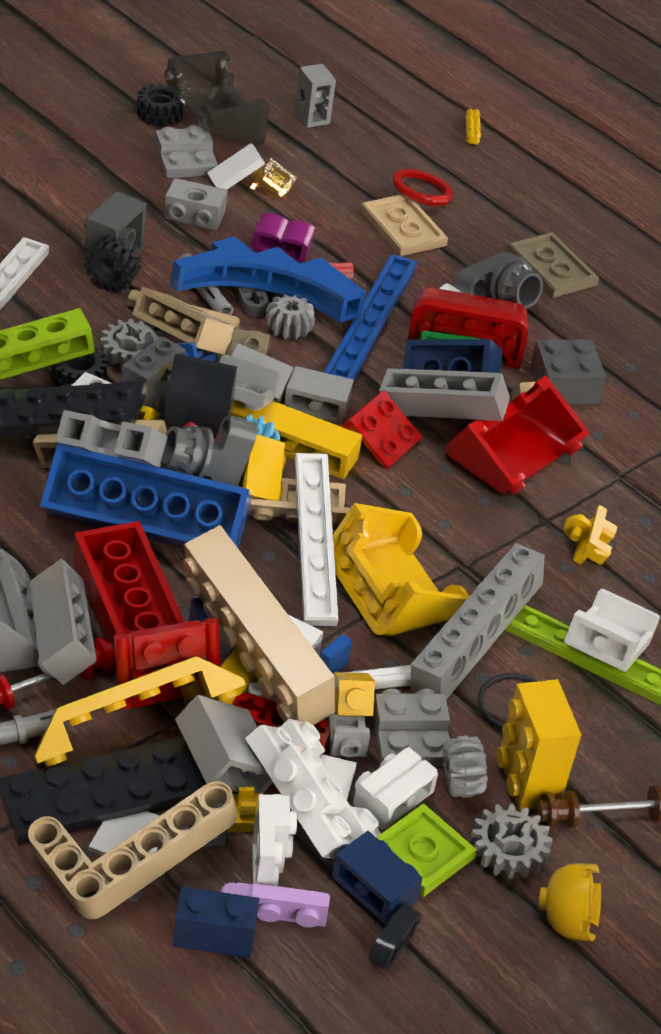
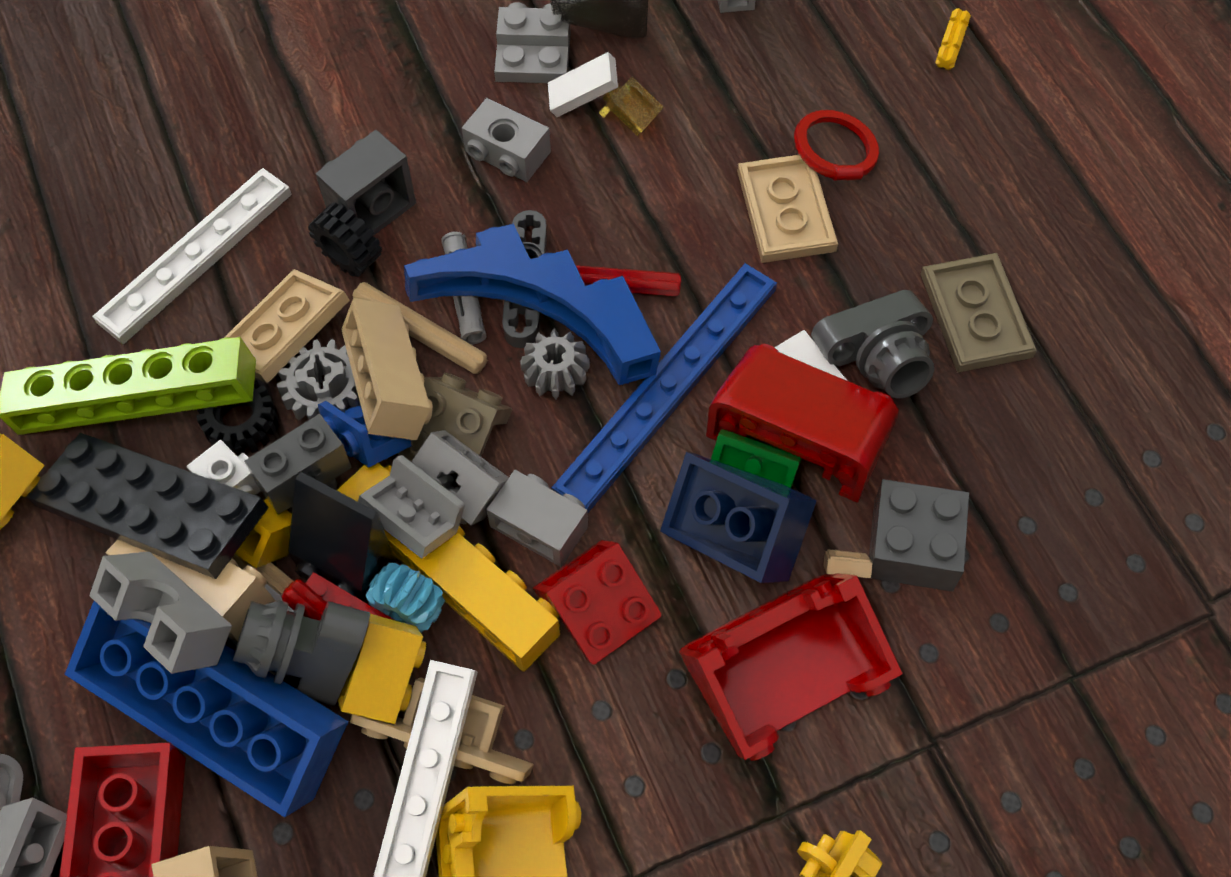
camera: 25 degrees right, 20 degrees up
(99, 307) = (287, 321): none -> tan tile
(291, 236) = (602, 215): magenta brick -> none
(447, 393) = (703, 570): light grey brick -> none

